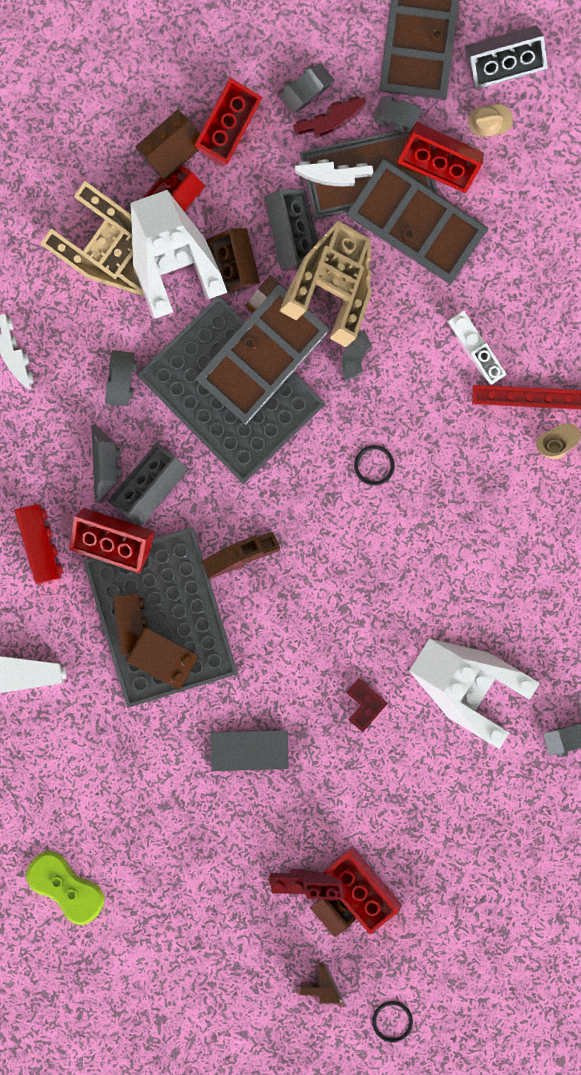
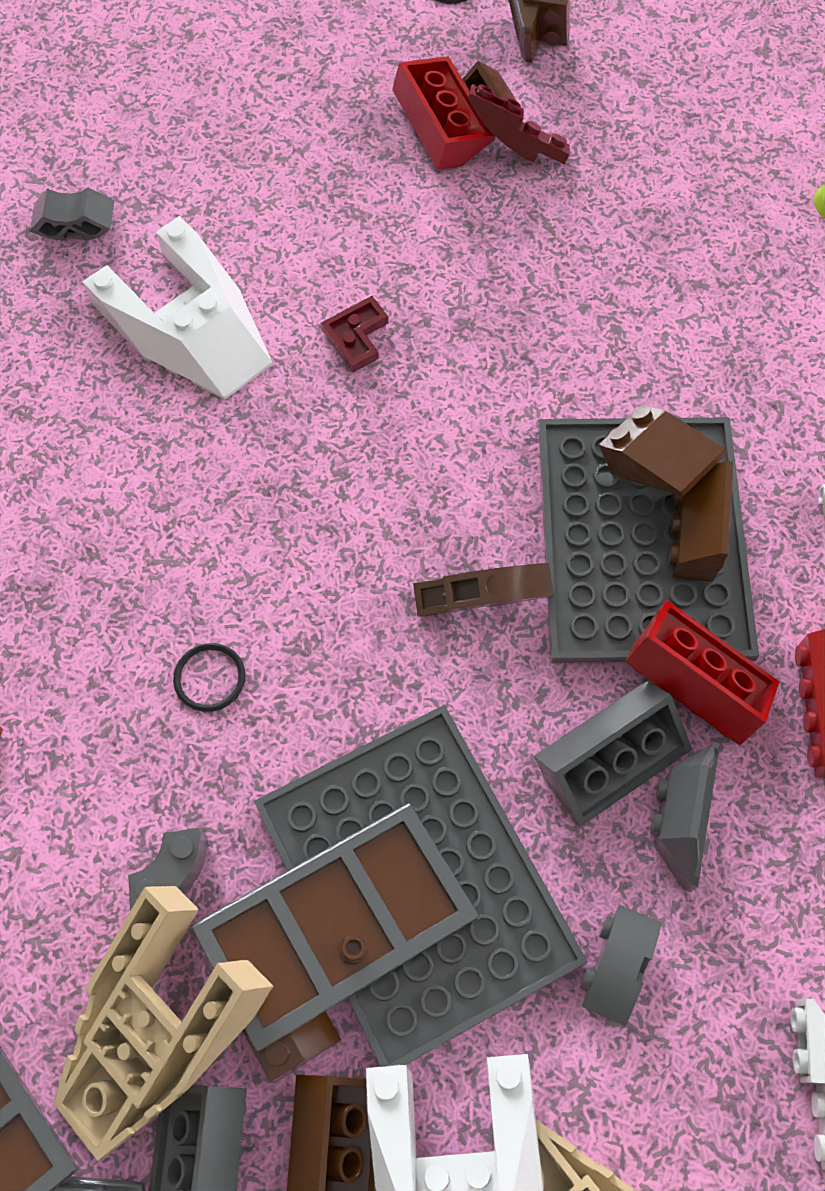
camera: 155 degrees left, 20 degrees down
(249, 750) = (551, 317): dark grey tile -> none

